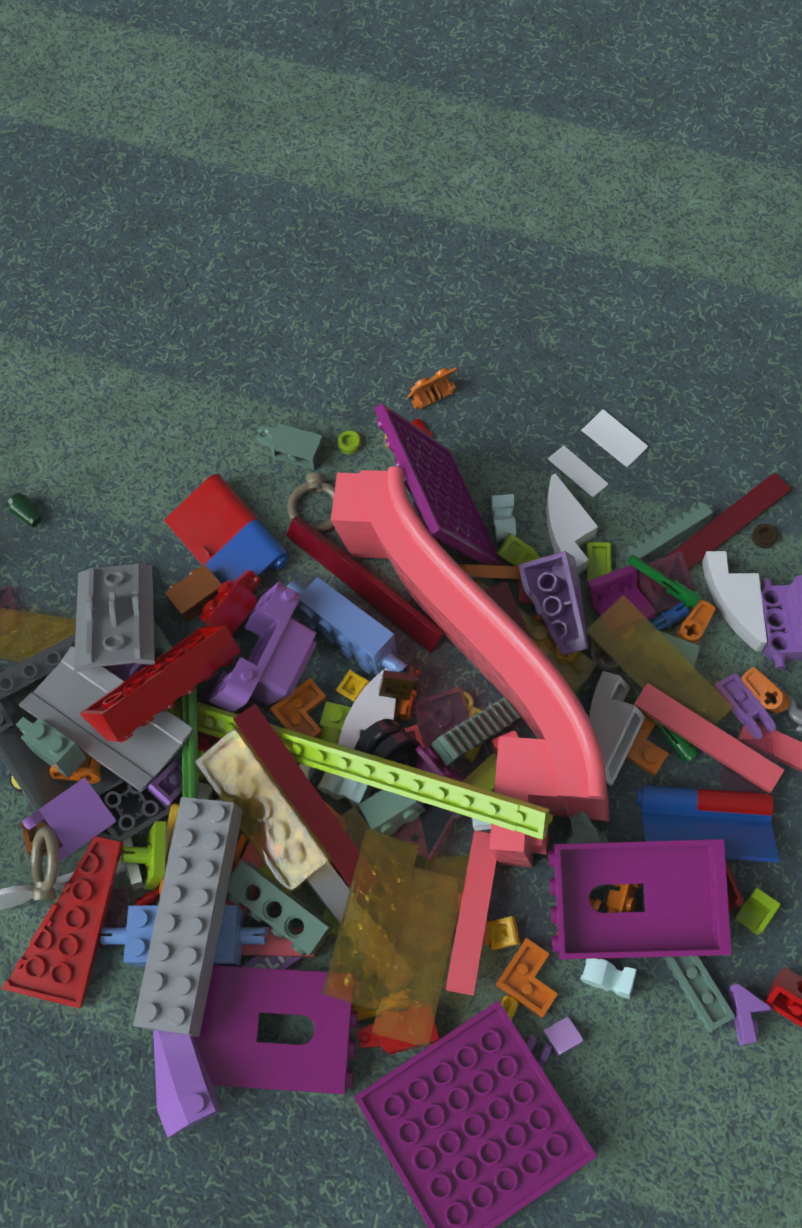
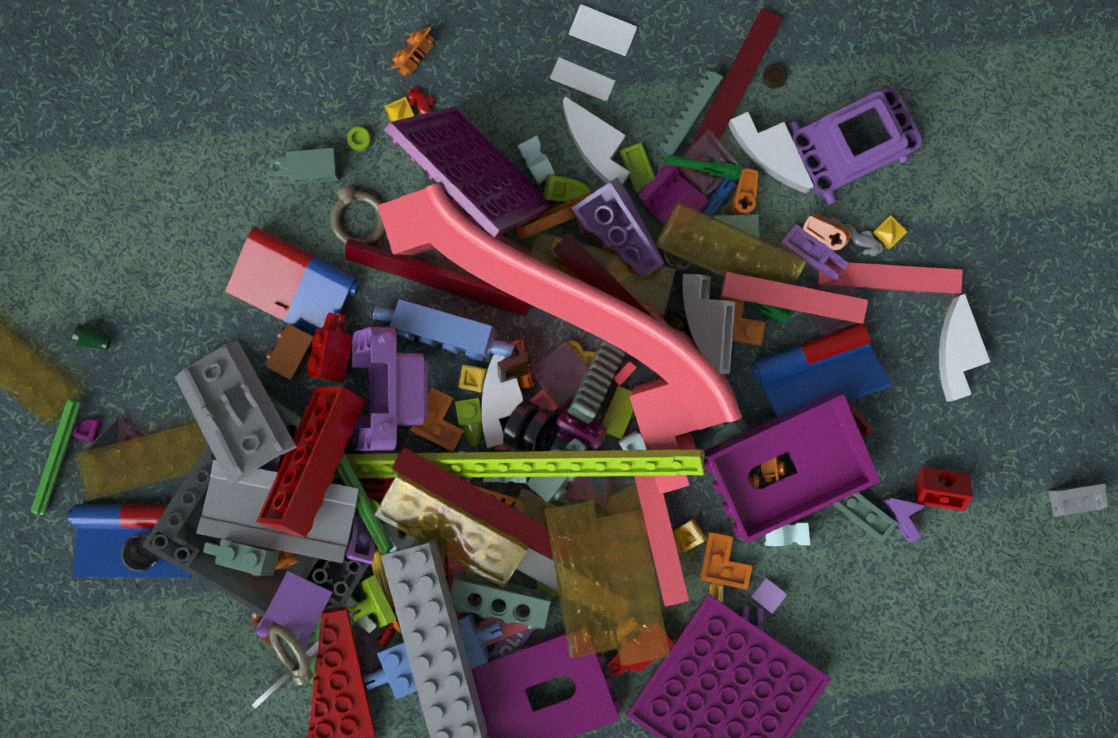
camera: 25 degrees left, 20 degrees up
(757, 911) = (885, 429): lime panel -> none

